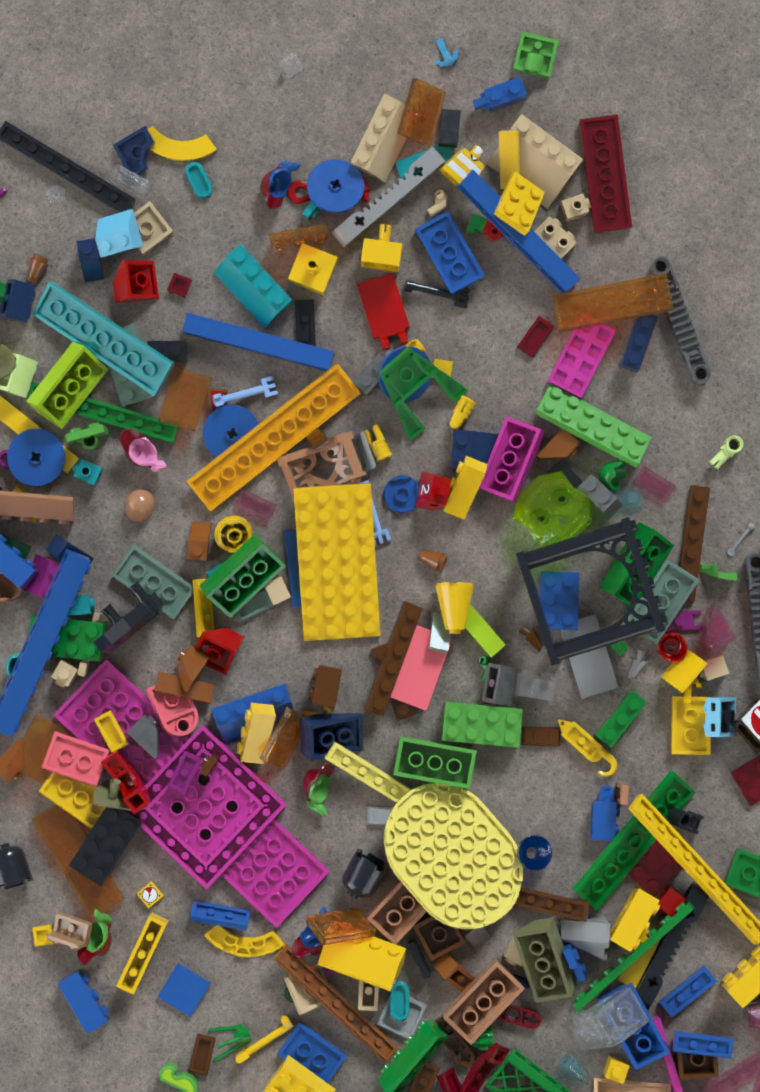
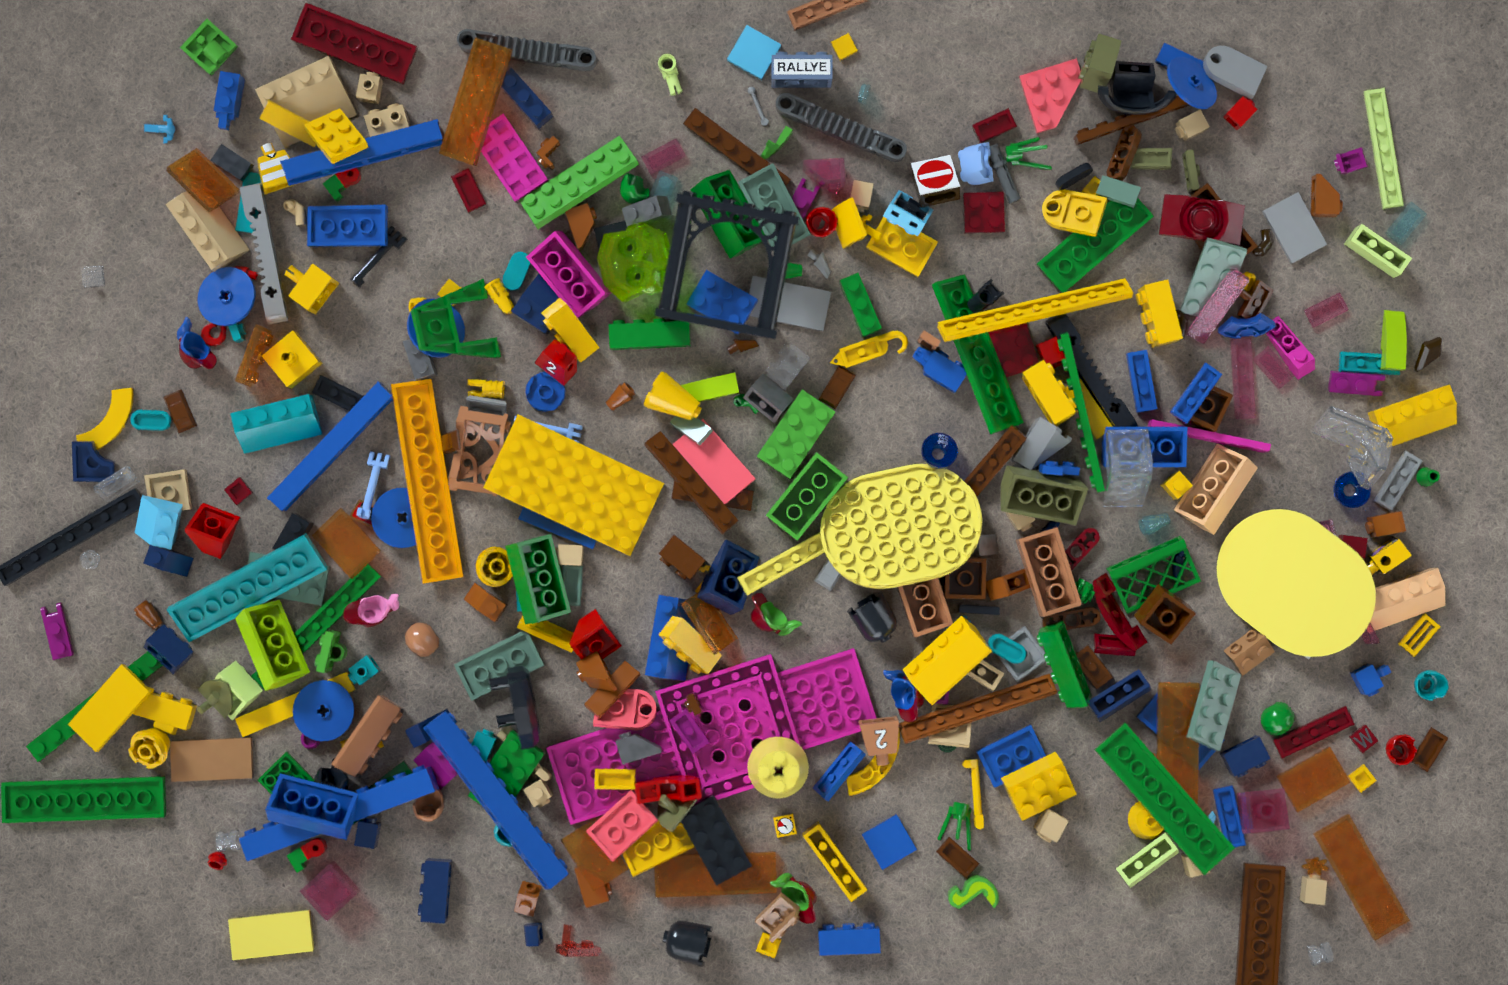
camera: 65 degrees left, 0 degrees up
(207, 858) = (778, 752): none -> light yellow cone
(219, 200) = (180, 411): none -> reddish brown tile
(255, 505) = (480, 532): clear pink tile -> none
(267, 935) = (880, 737): none -> nougat torso
(340, 926) = (908, 664): clear orange plate -> none
(384, 309) = (365, 314): red tile -> none
(489, 414) = (516, 271): none -> teal tile
(497, 555) = (648, 335): none -> green brick
(607, 383) = (548, 146): none -> dark orange bracket

